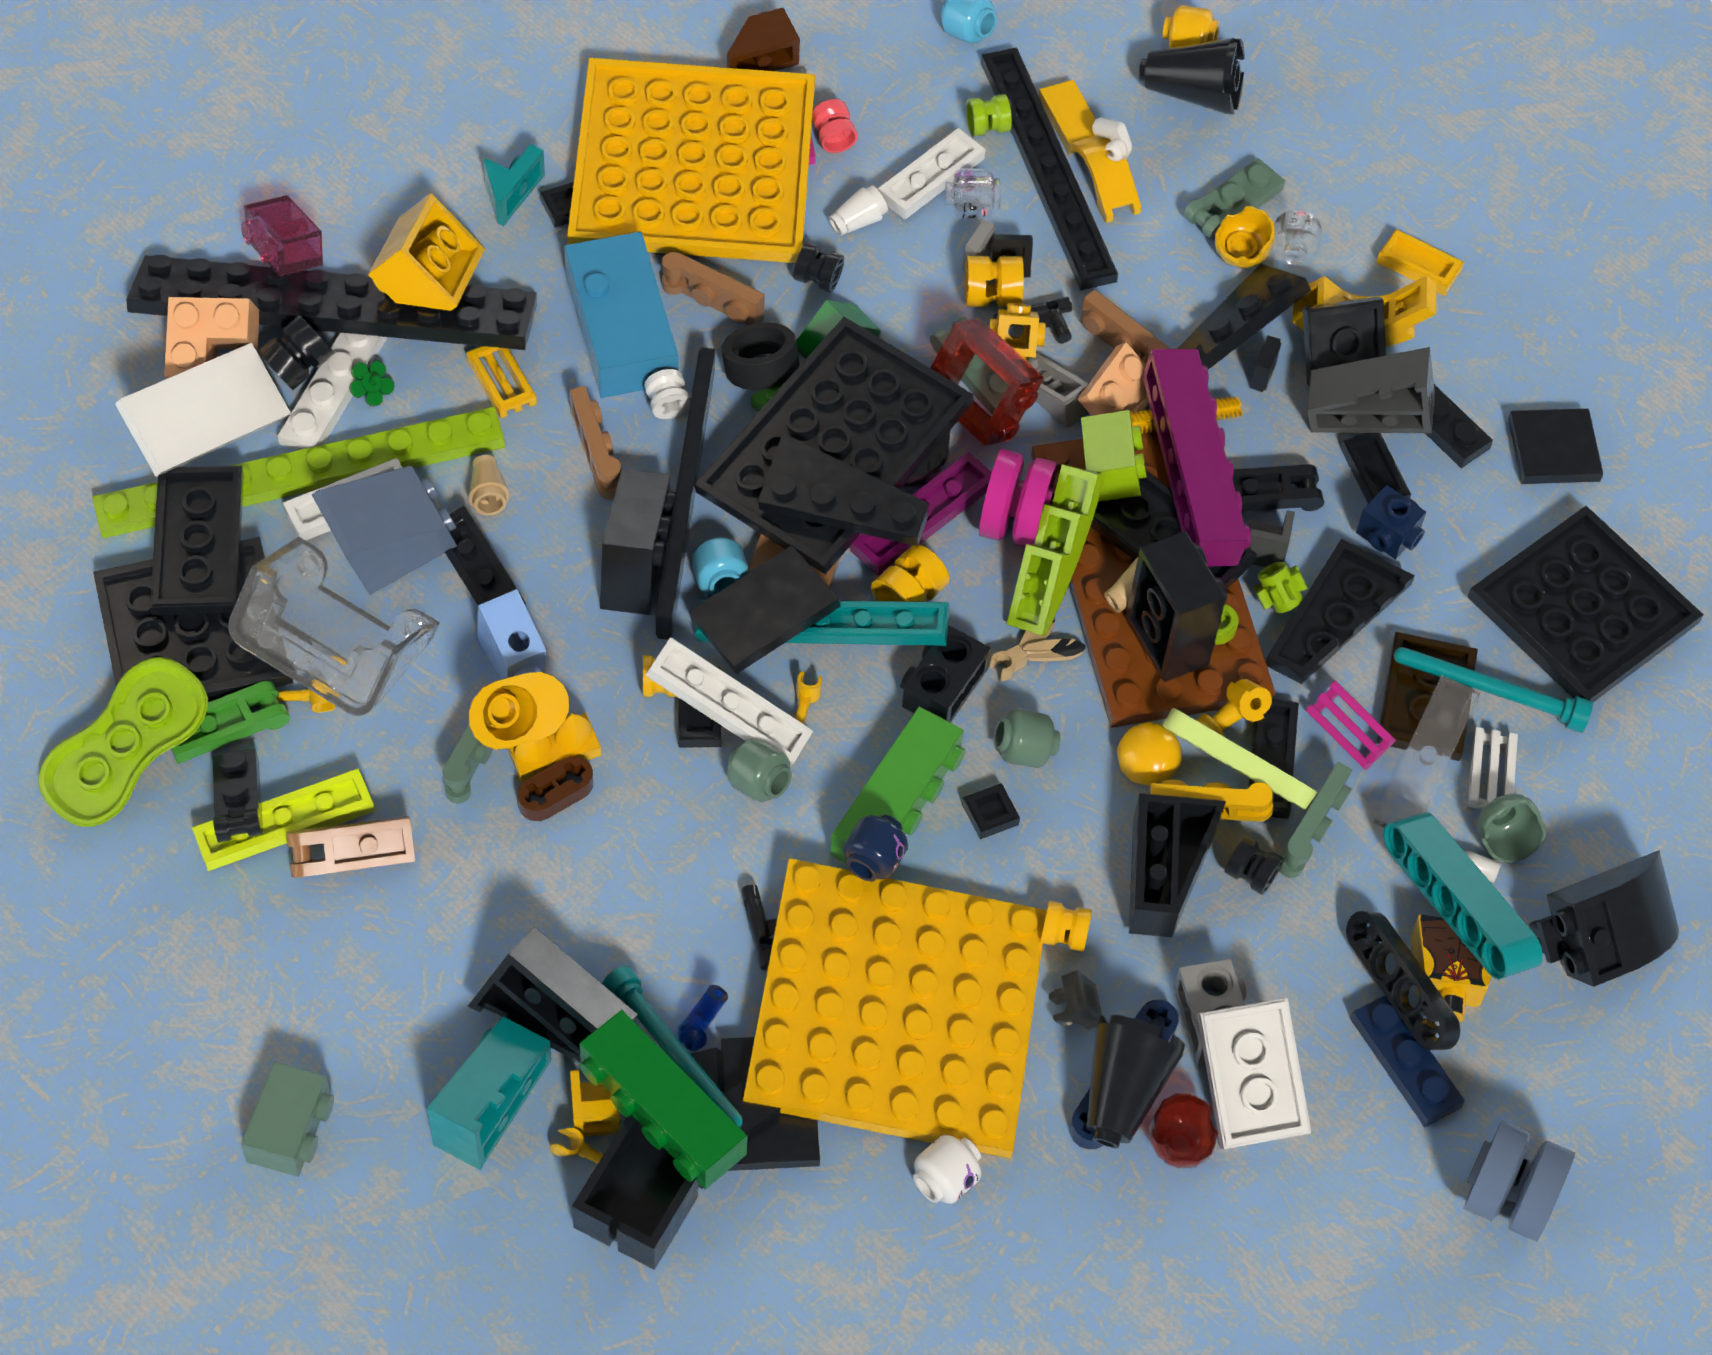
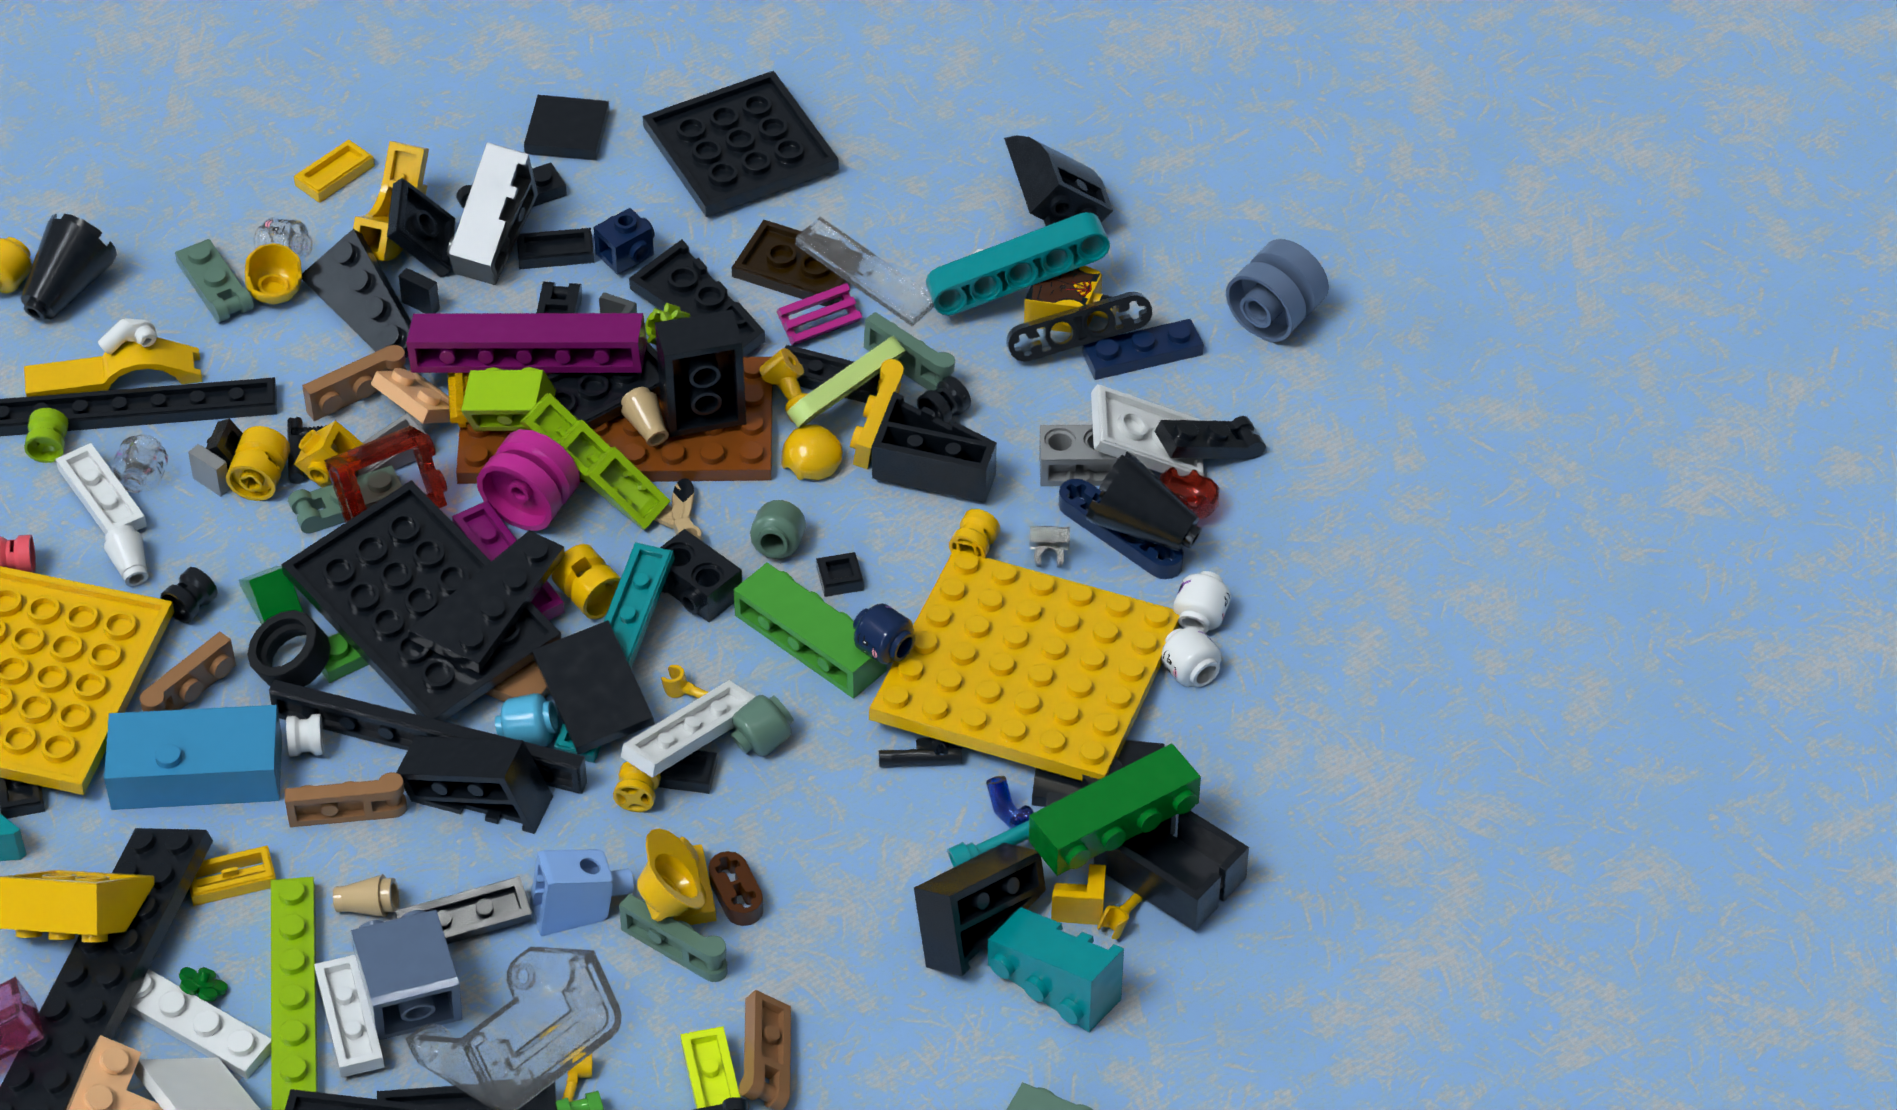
camera: 75 degrees left, 10 degrees down
(295, 352) = (151, 1026): black wheel -> none
(1027, 1168) = (1202, 601): none -> white head
(1271, 1142) = (1210, 439): none -> black plate
(1495, 741) = (886, 235): white tile -> none
(1511, 828) = (948, 232): sand green hair -> none
(1572, 712) = (843, 174): teal piece -> none

